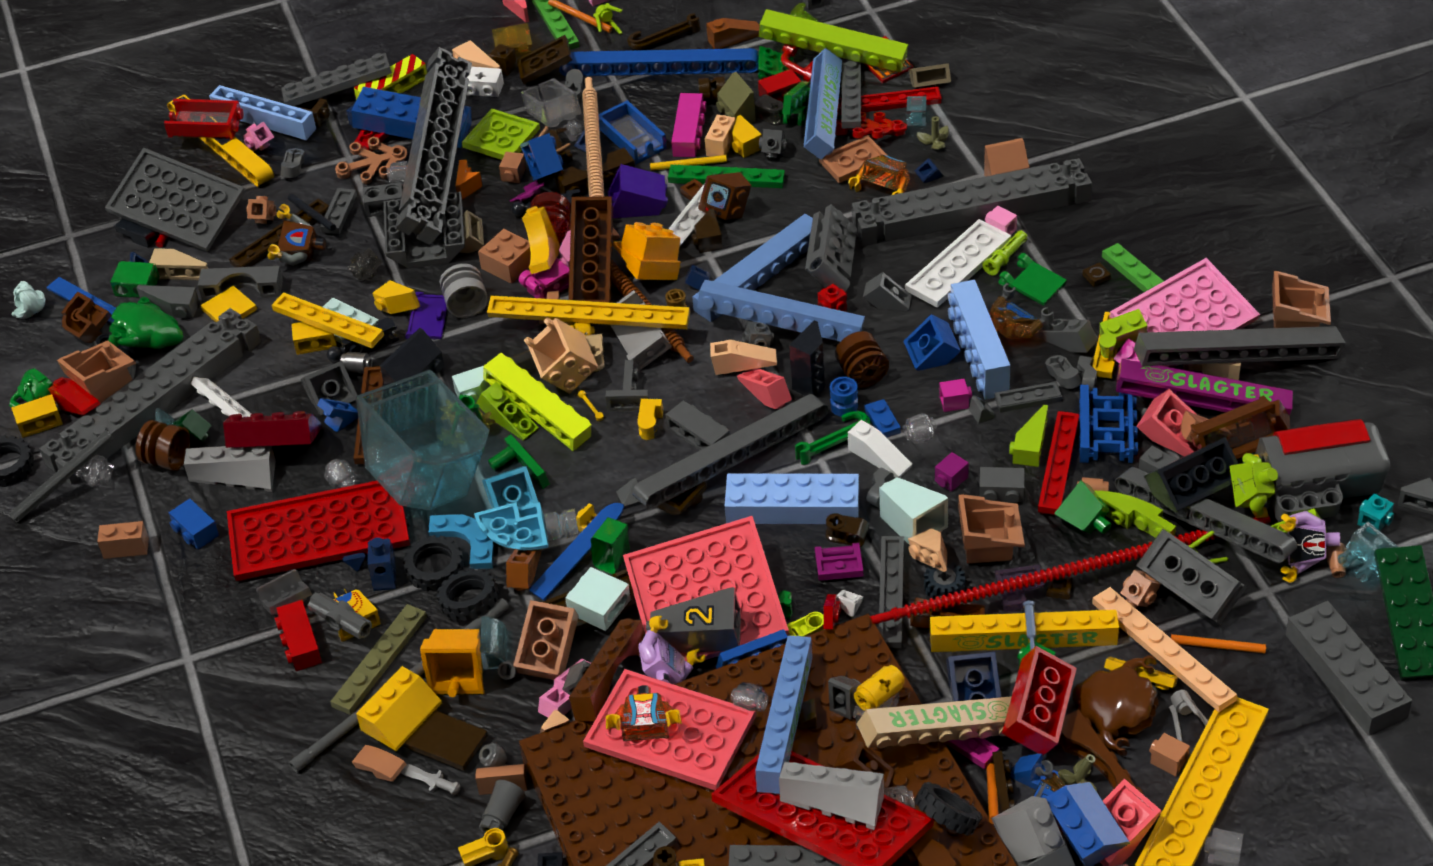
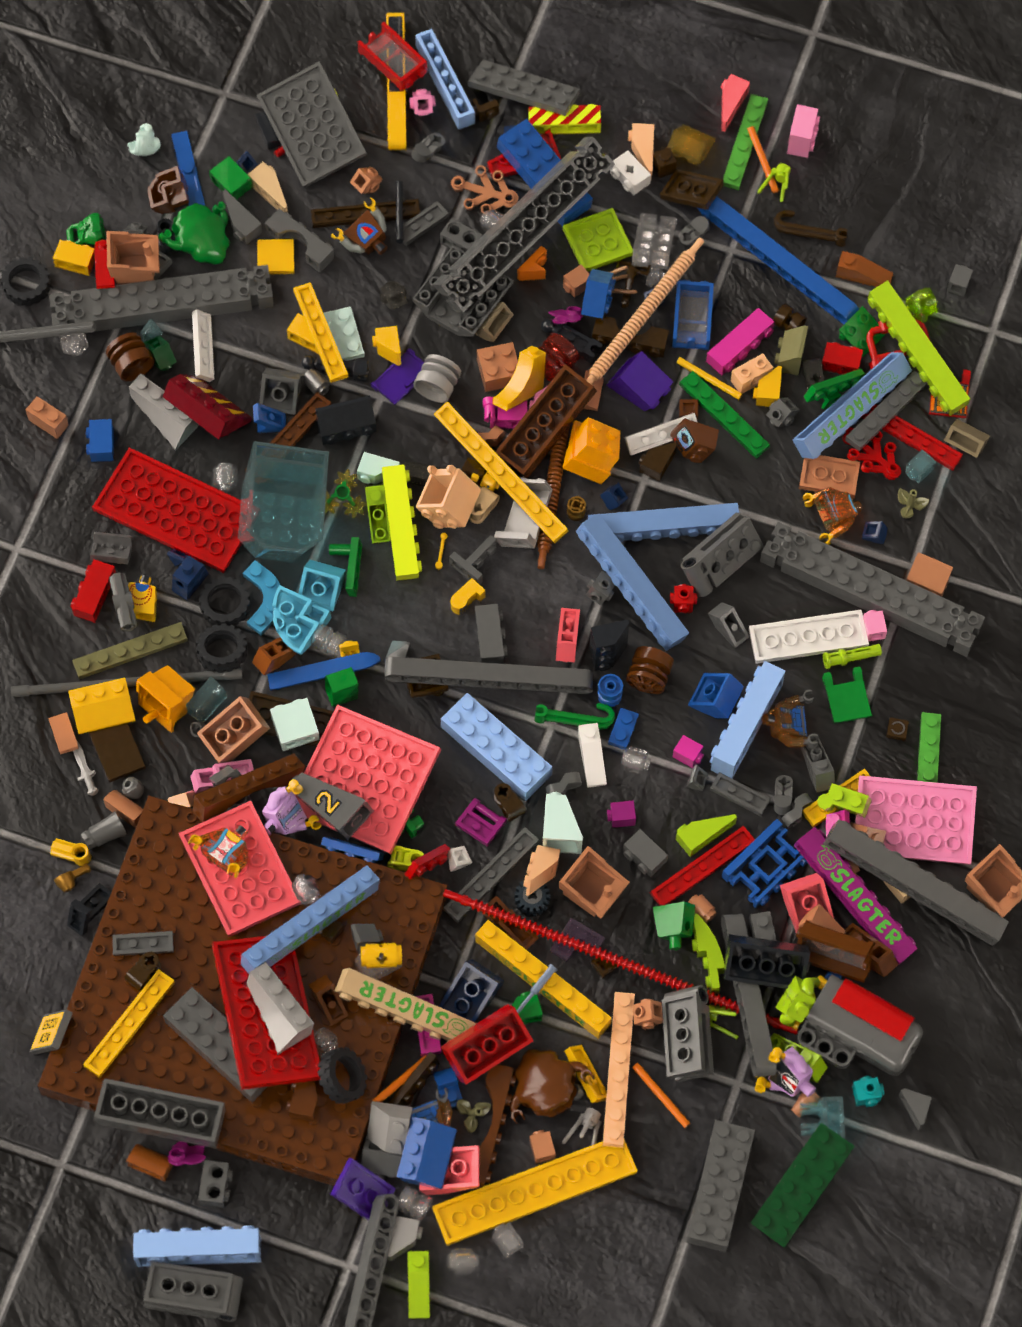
camera: 35 degrees right, 20 degrees up
(739, 356) = (572, 596): light nougat slope -> none

